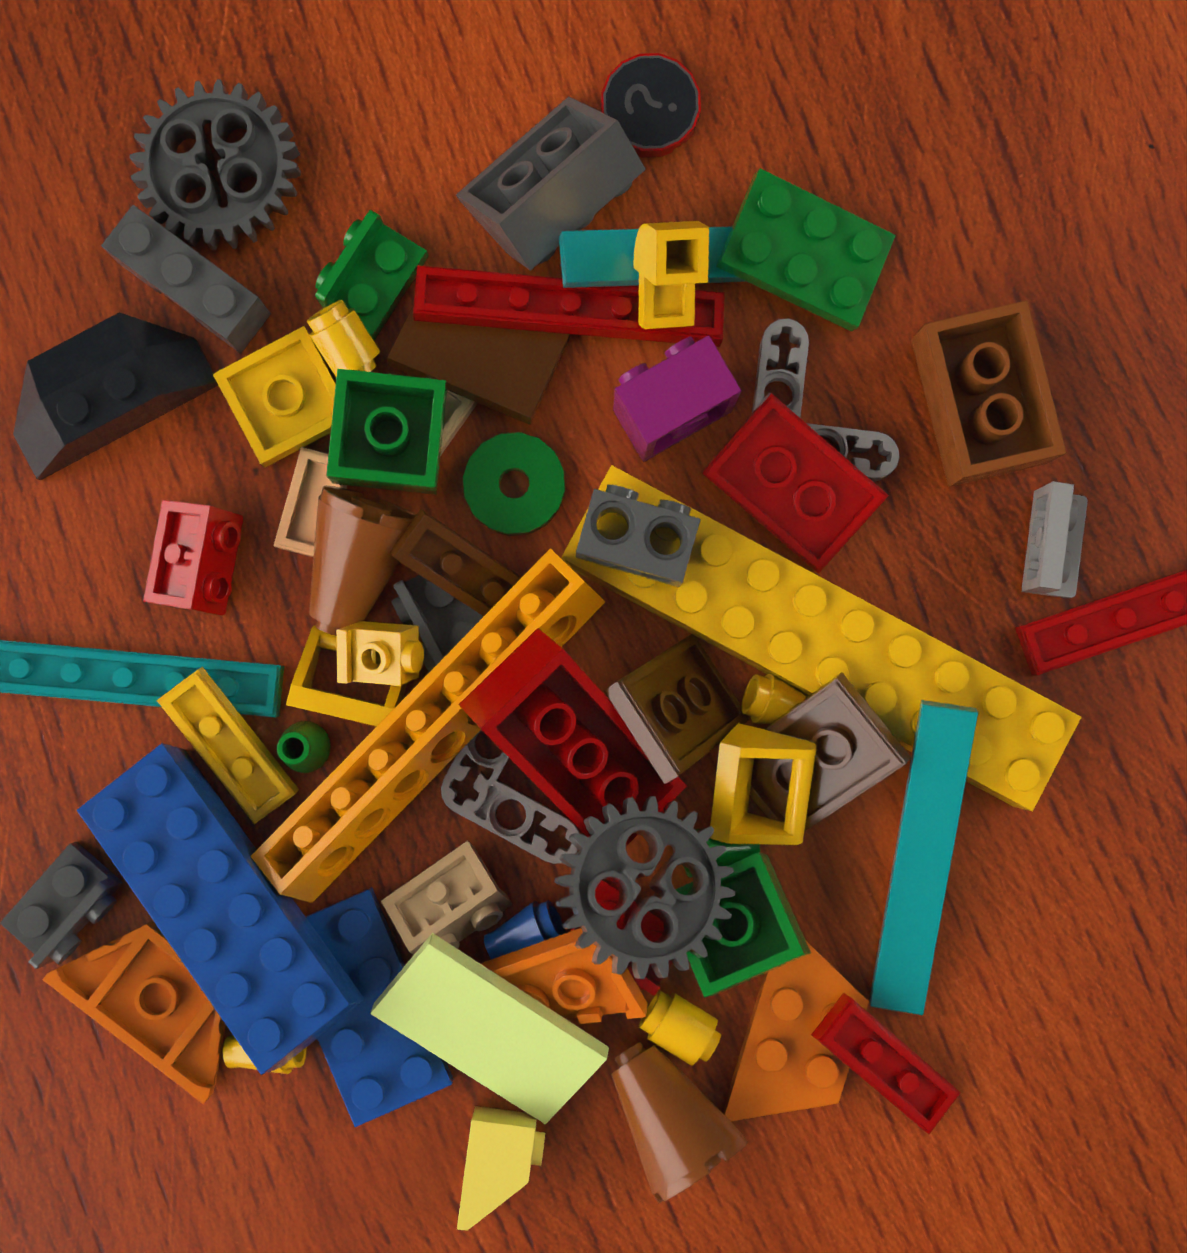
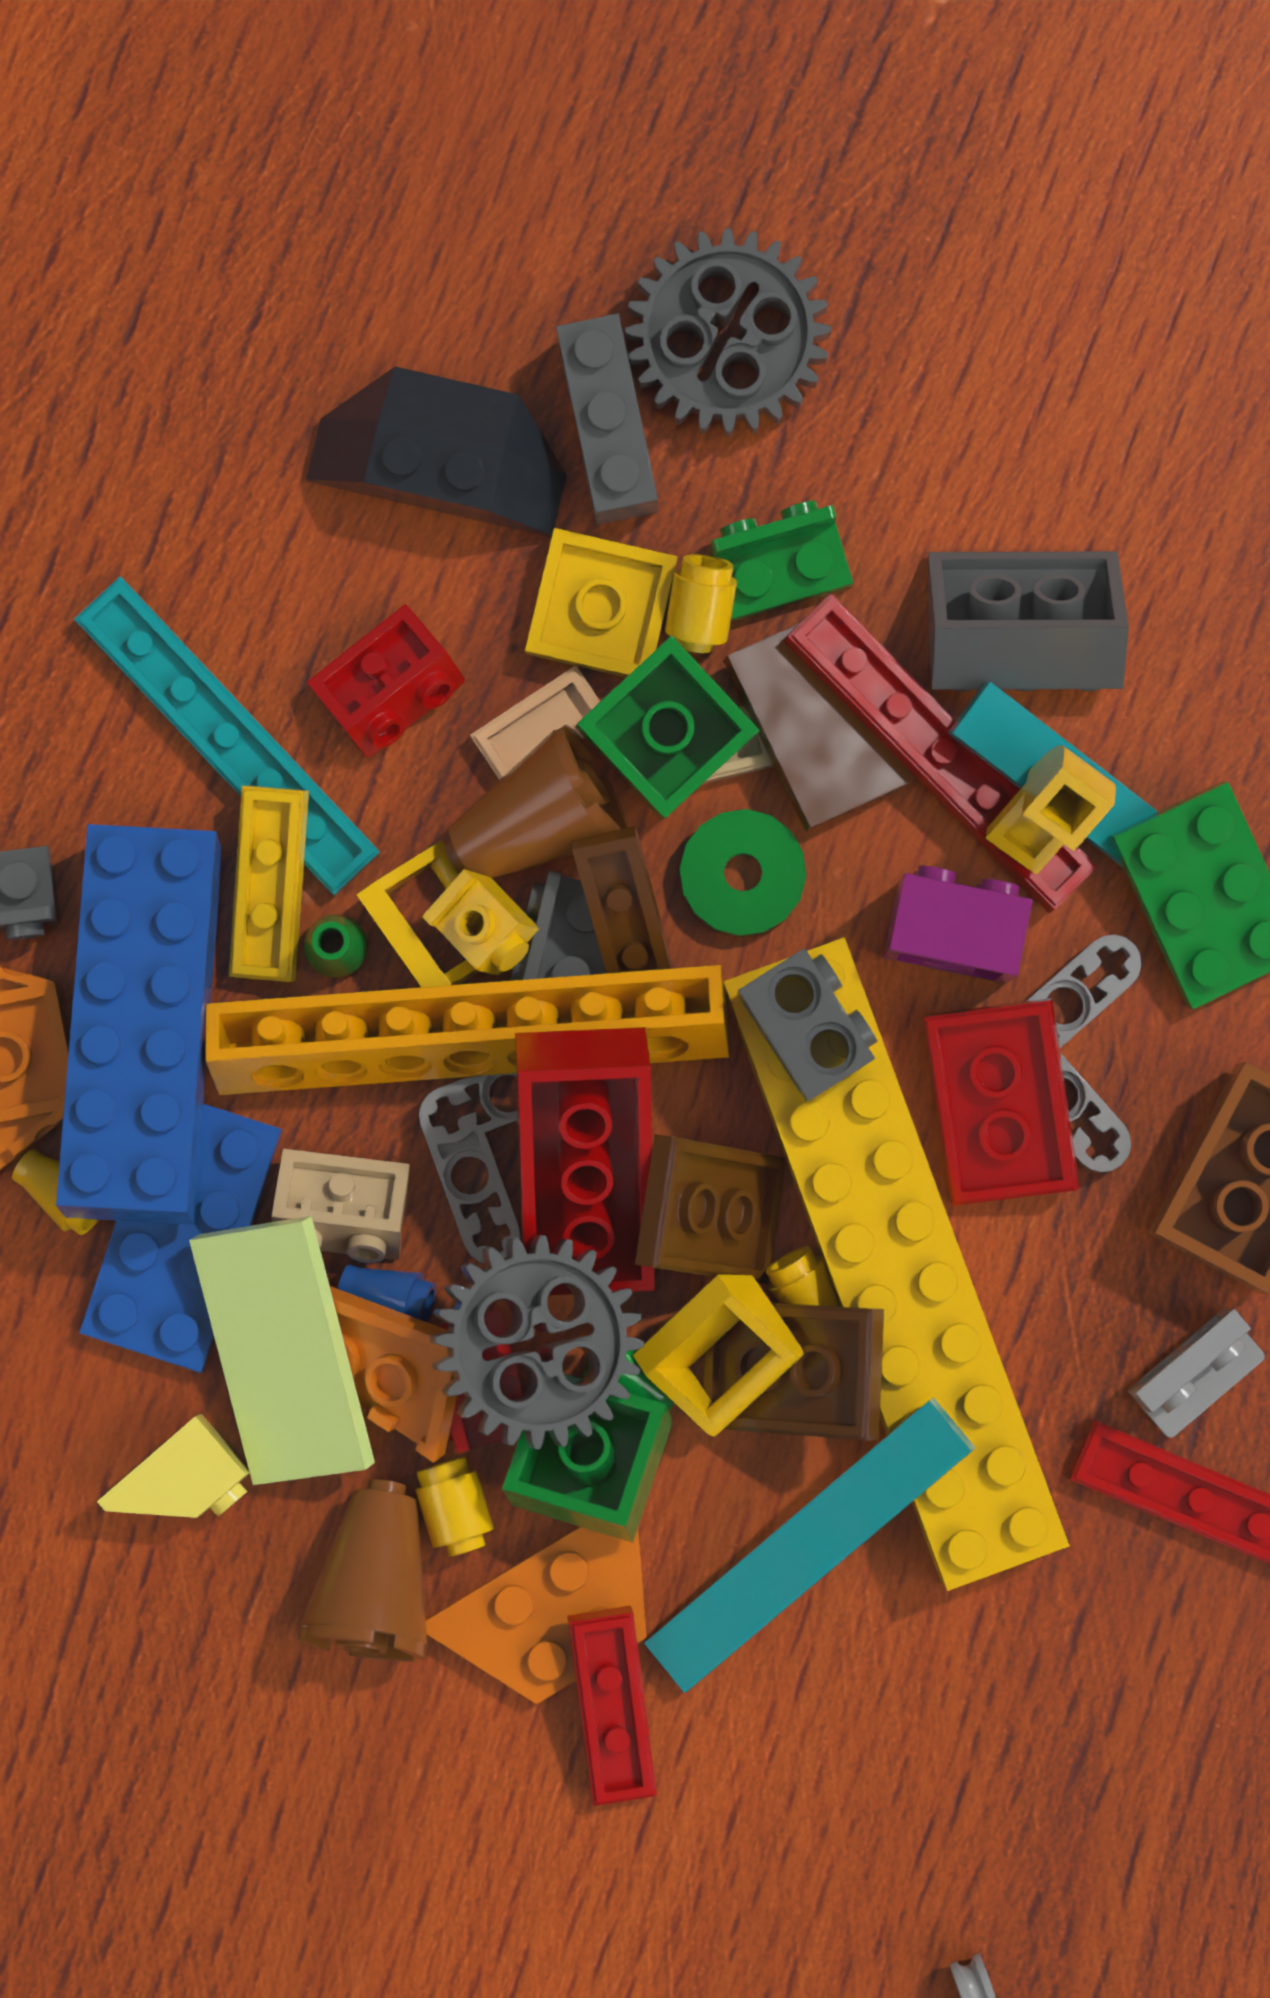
camera: 45 degrees right, 0 degrees up
(653, 102) = (1187, 628): black tile -> none

